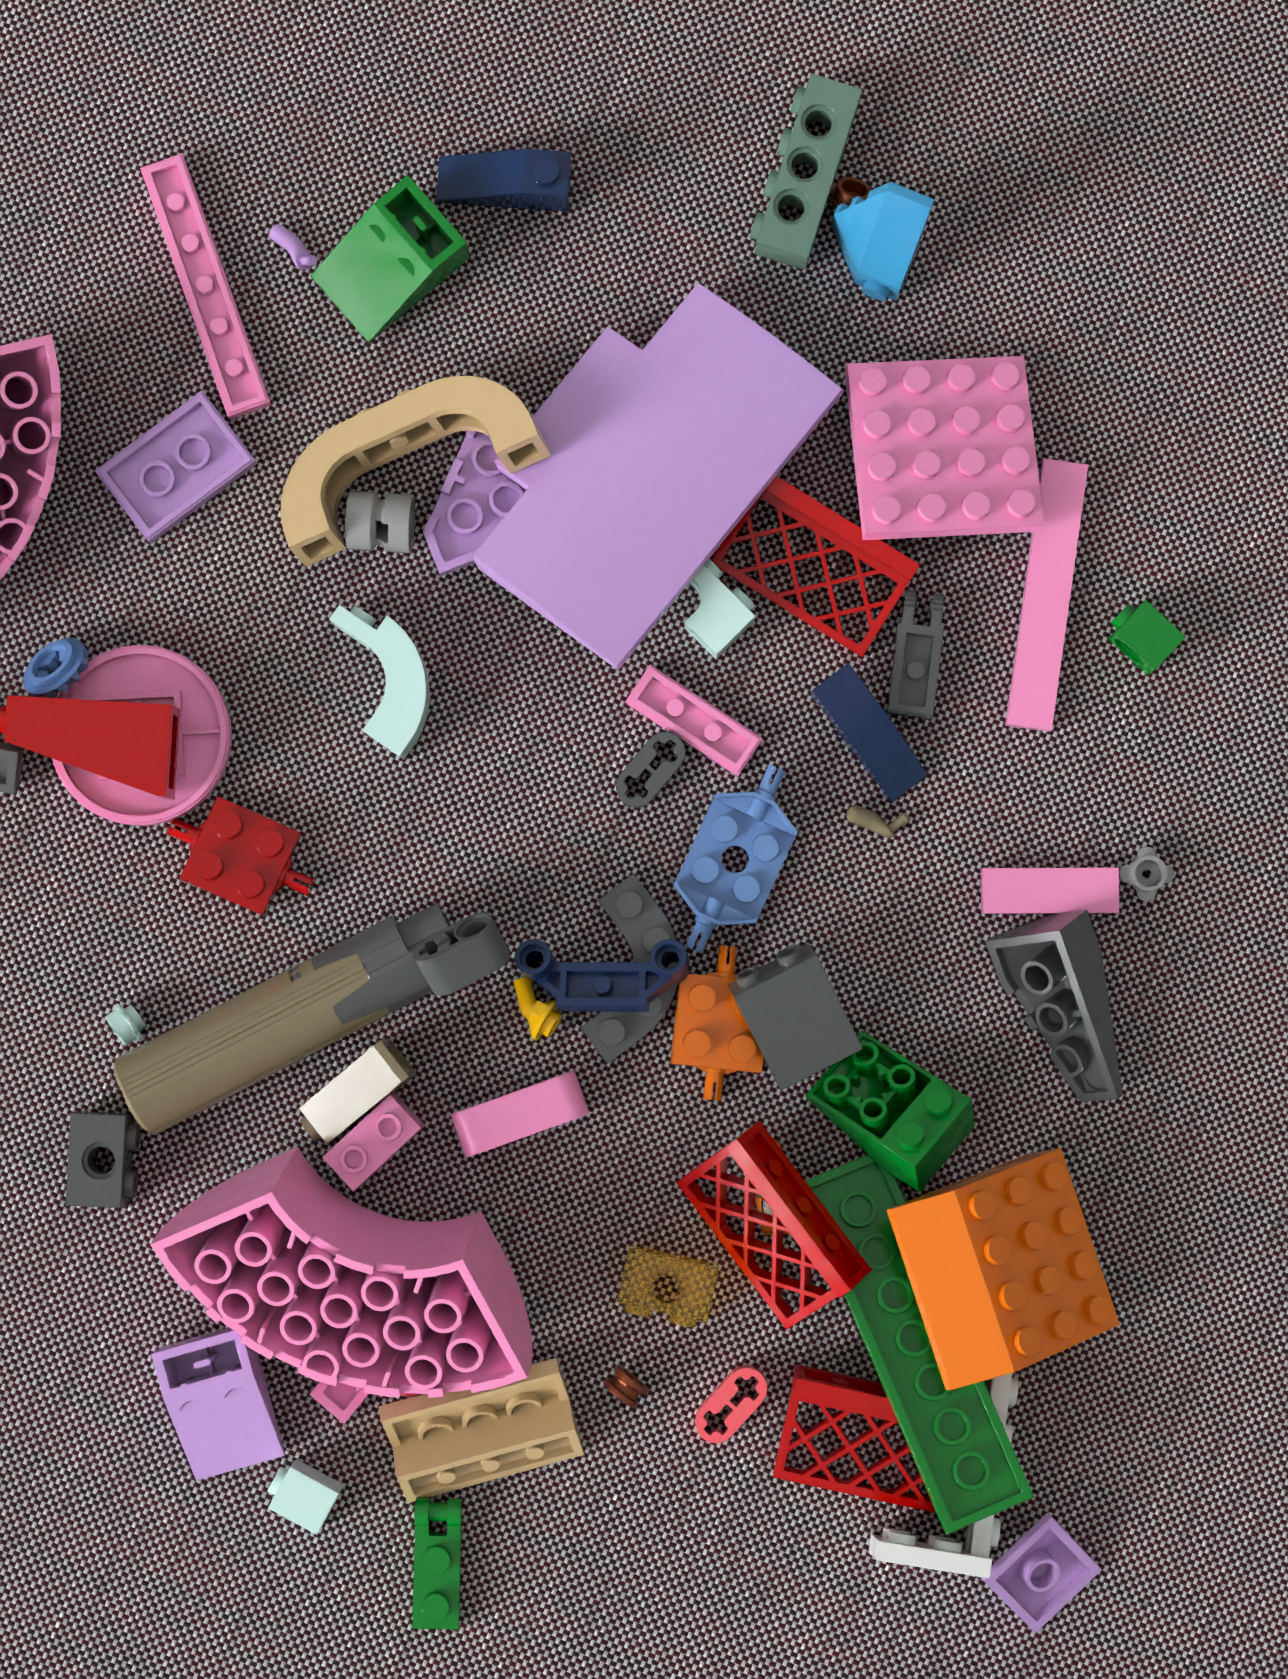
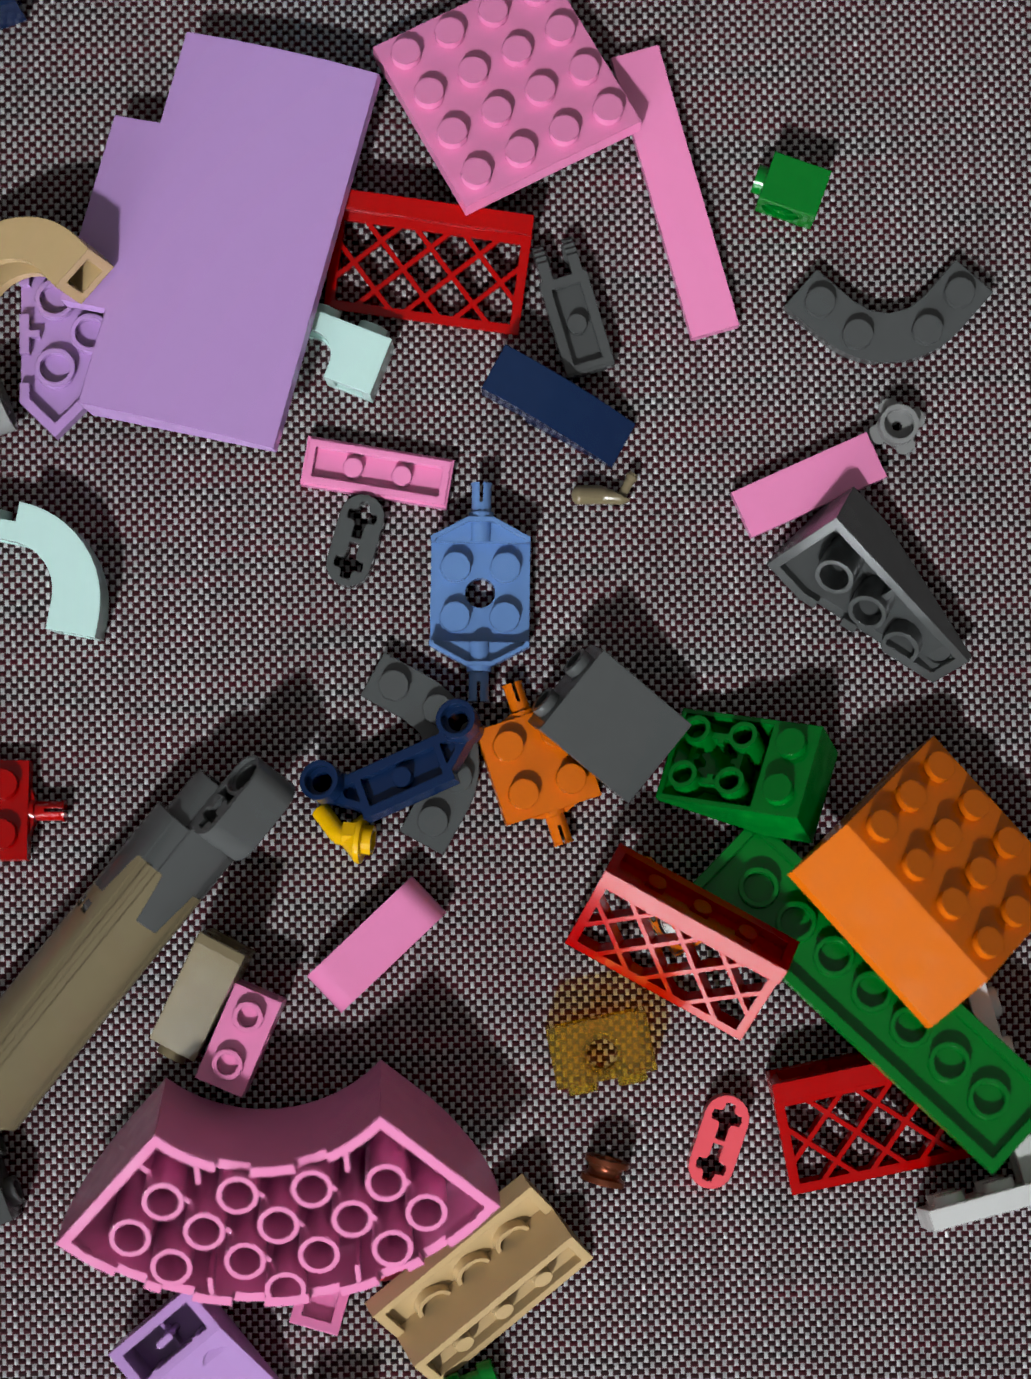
camera: 30 degrees left, 0 degrees up
(1177, 797) = (882, 336): none -> dark grey plate

